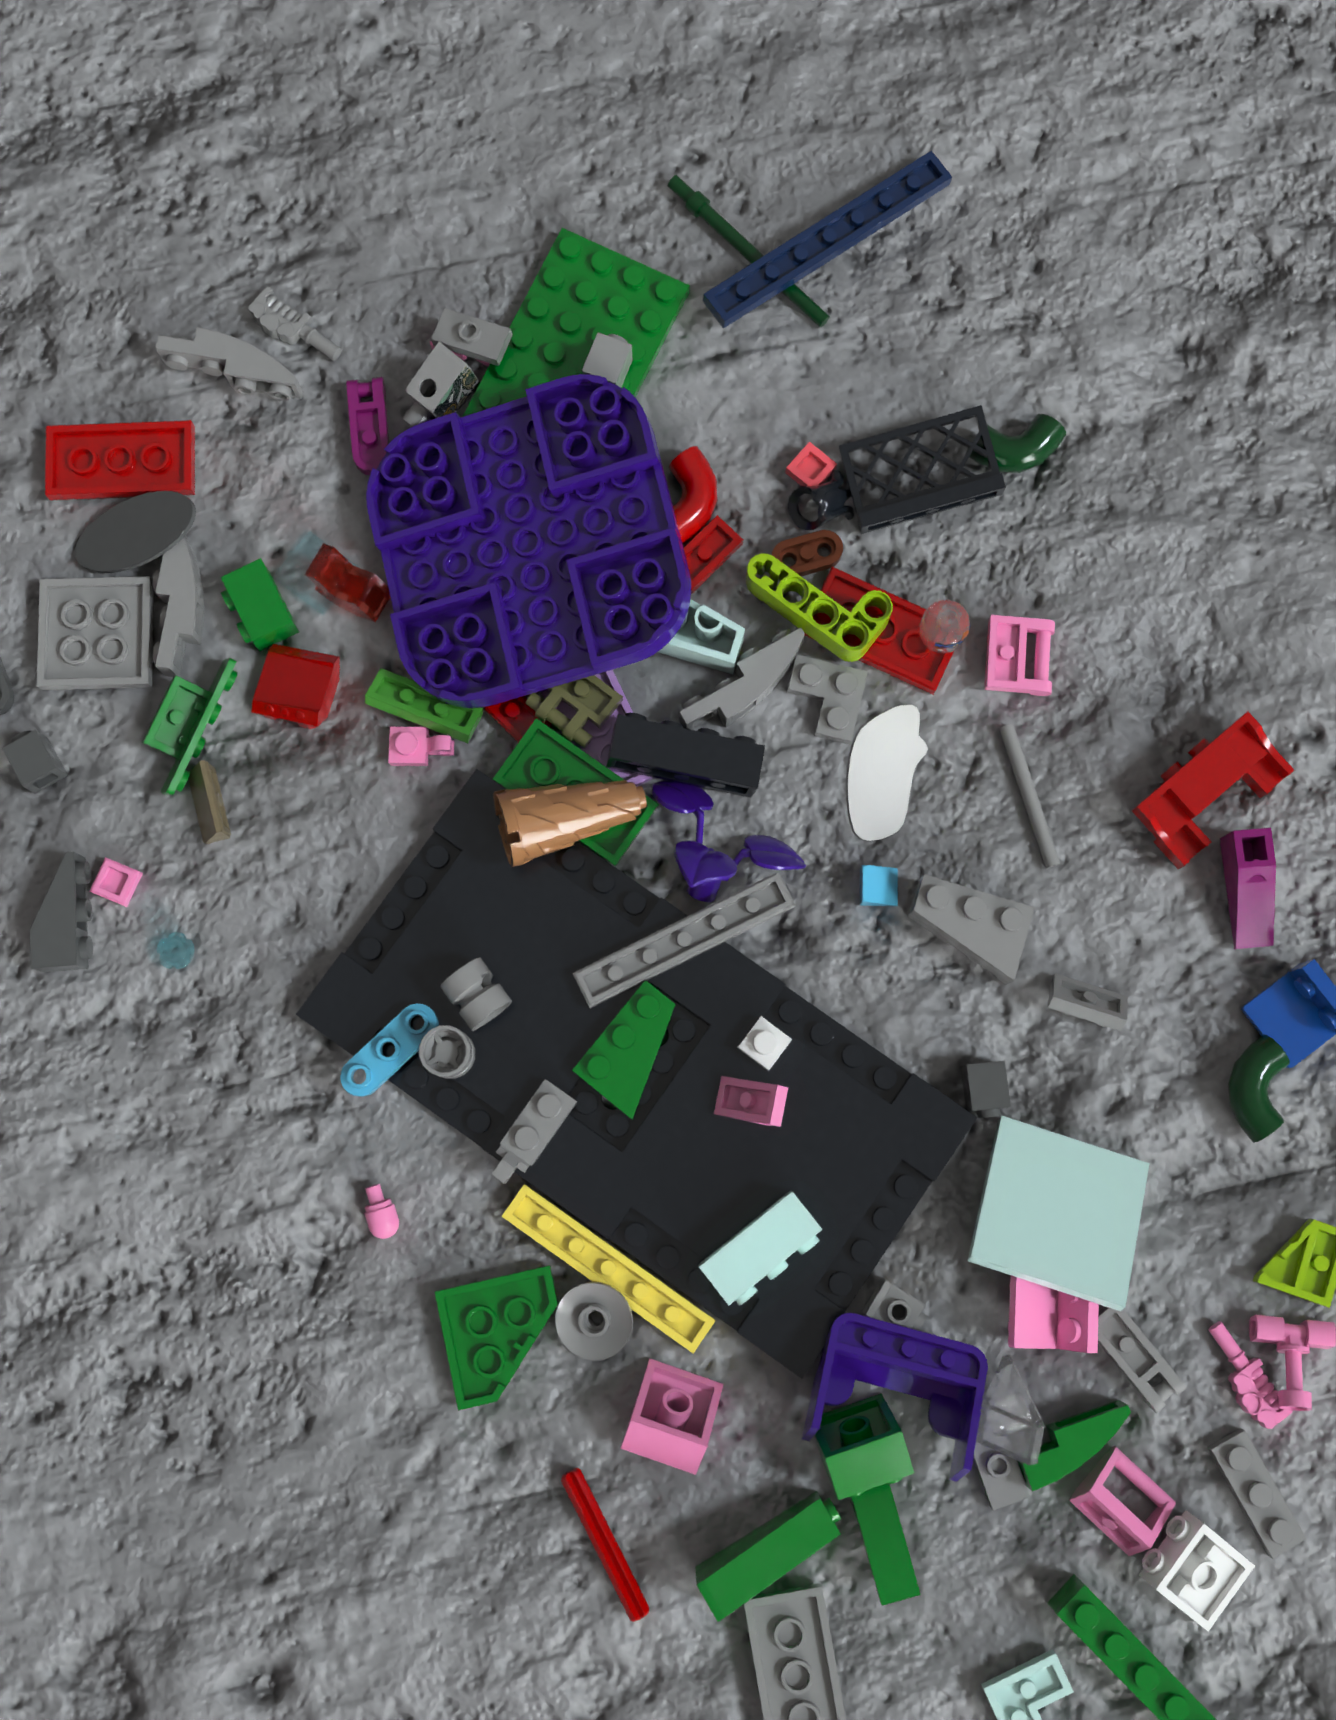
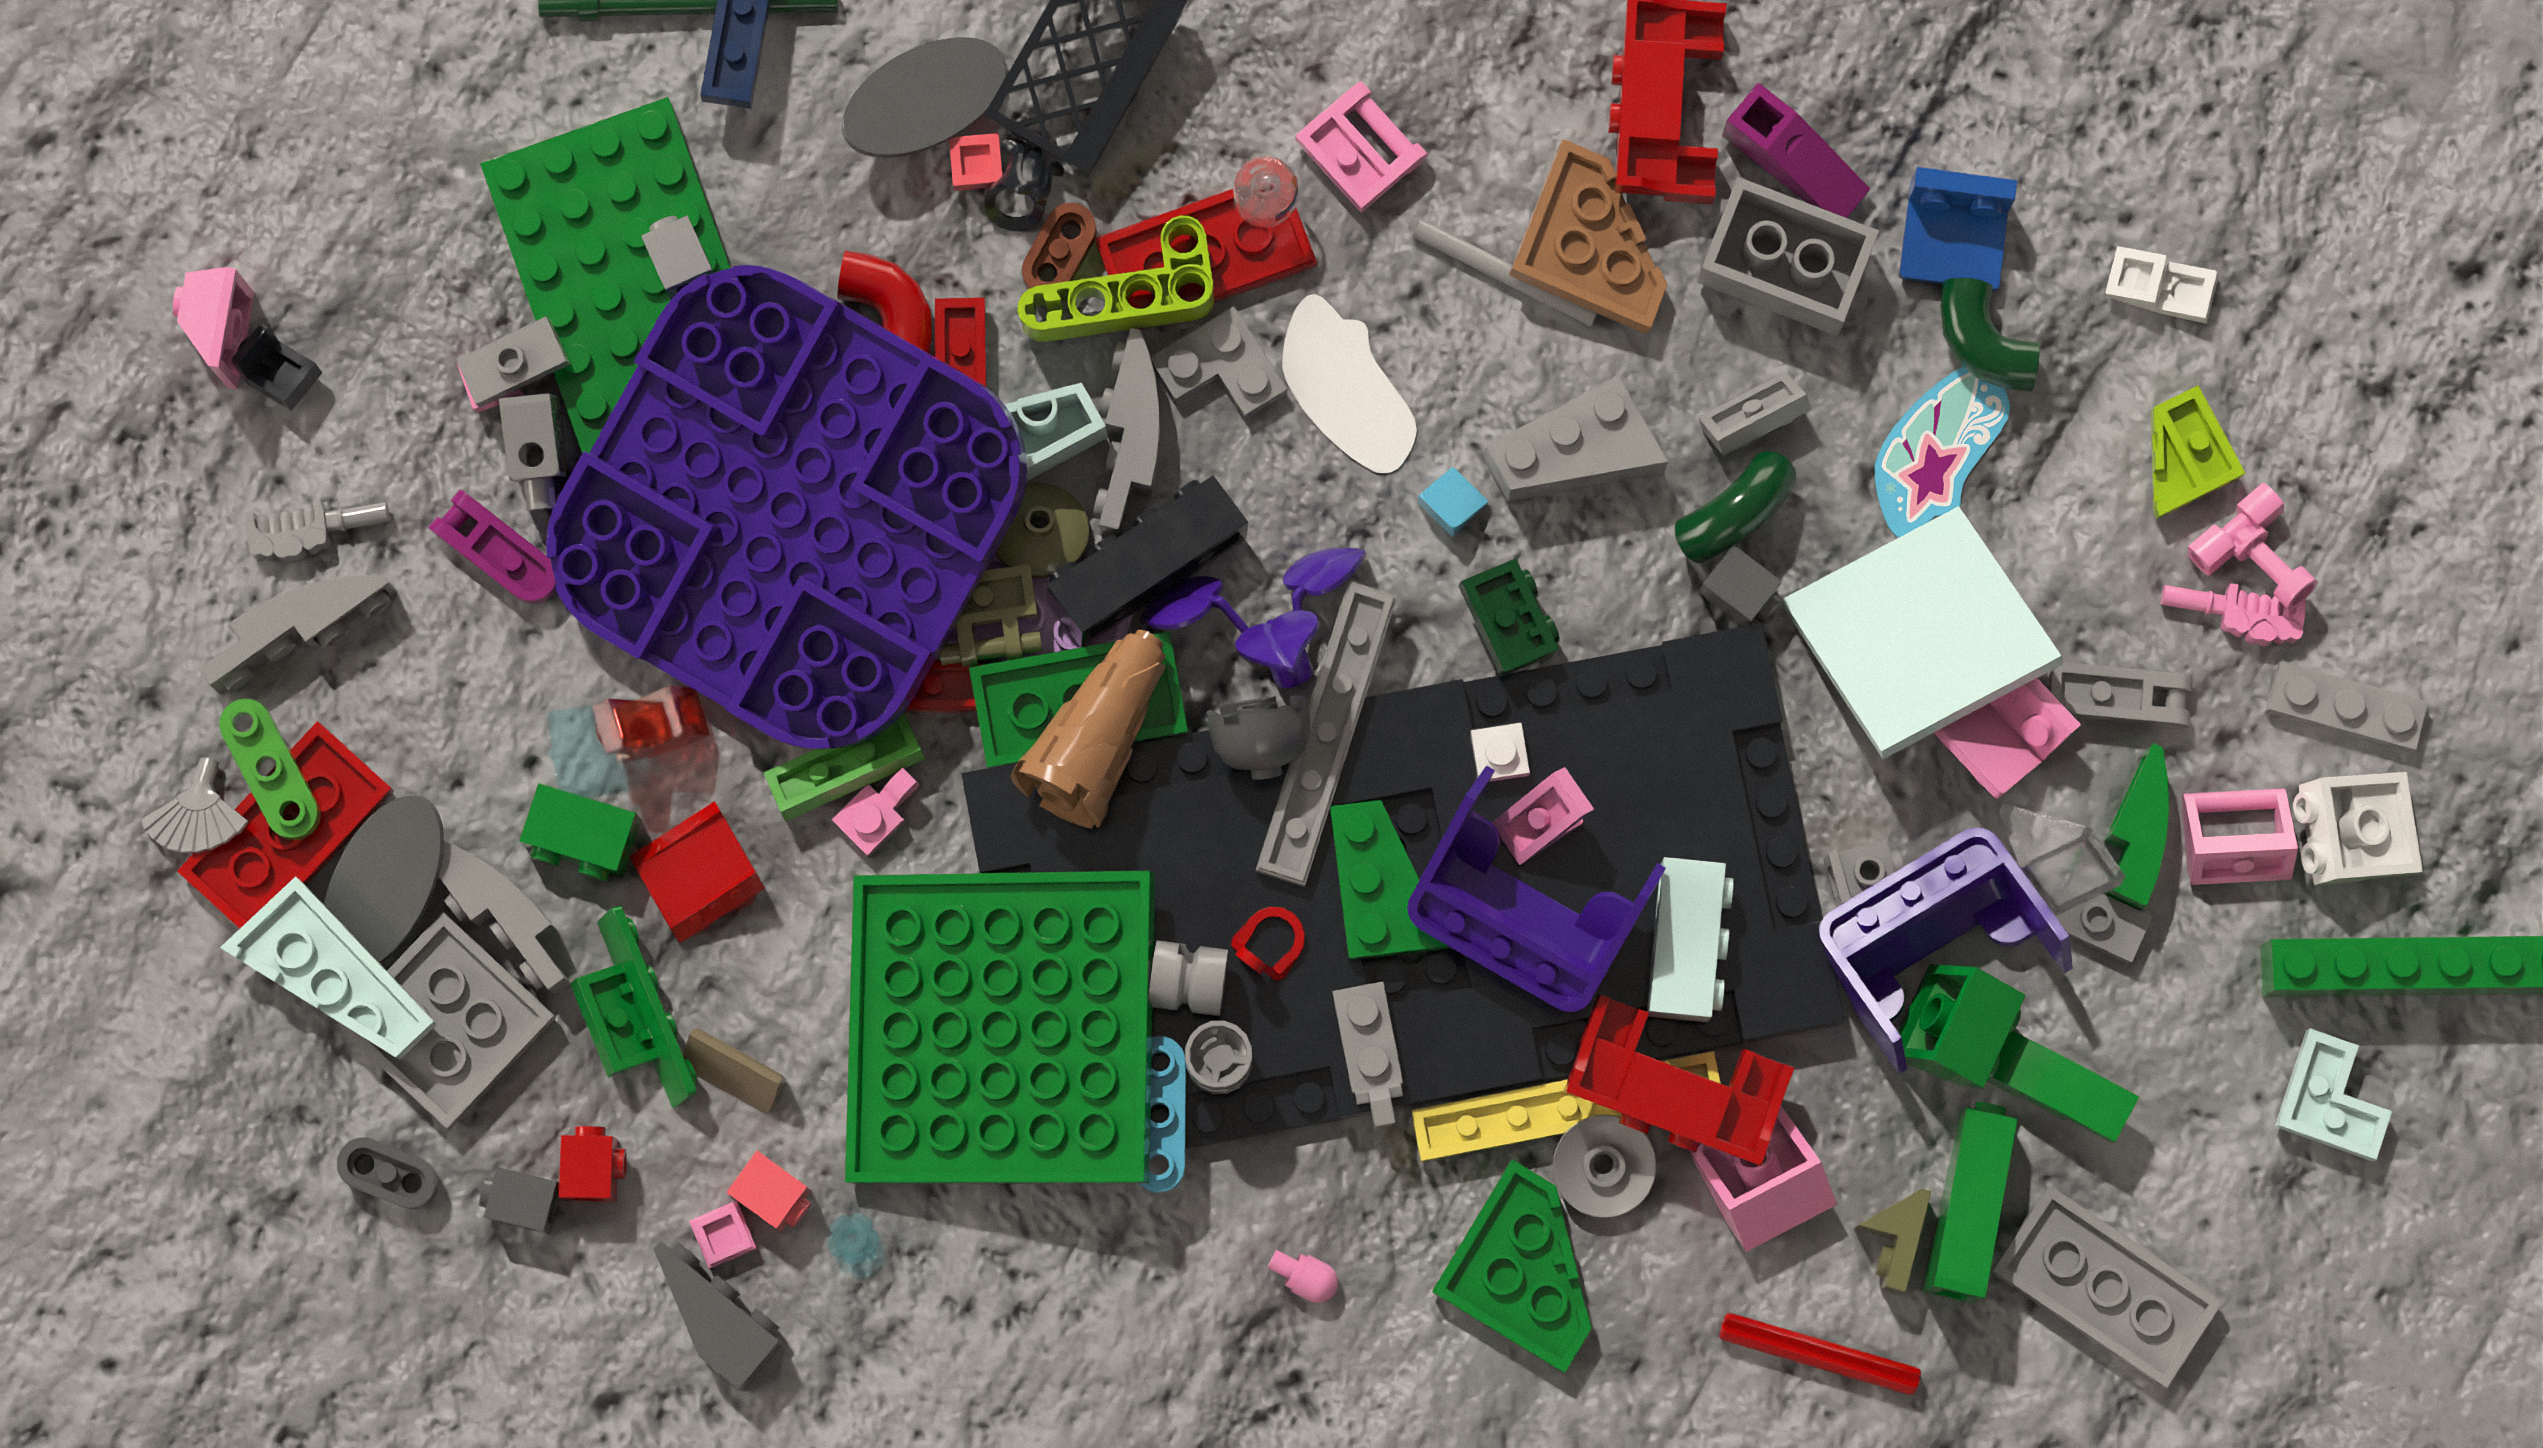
camera: 45 degrees left, 0 degrees up
(62, 539) = (321, 962): none -> light aqua wing
(85, 411) = (197, 817): none -> light grey hand
(85, 778) = (590, 1165): none -> red brick
(143, 433) = (287, 782): none -> bright green plate
(158, 884) = (771, 1192): none -> coral brick
(350, 179) = (216, 317): none -> bright pink slope
(355, 227) = (275, 367): none -> black bracket
(356, 922) = (1000, 1028): none -> green plate
(518, 1024) = (1285, 964): none -> red piece
(646, 904) = (1260, 734): none -> dark grey cylinder
(651, 701) = (1050, 546): none -> olive dish
(663, 1326) = (1654, 1093): none -> red bracket
(676, 1145) = (1513, 925): none -> dark purple windscreen
(721, 1523) = (1903, 1225): none -> olive slope
(816, 407) = (923, 97): none -> dark grey shield
(845, 977) = (1509, 617): none -> dark green bracket
(1026, 1044) = (1737, 509): none -> dark green cylinder
(1090, 824) = (1589, 243): none -> medium nougat plate
(1167, 1120) = (1936, 448): none -> sticker
(1192, 936) = (1787, 256): none -> light grey brick

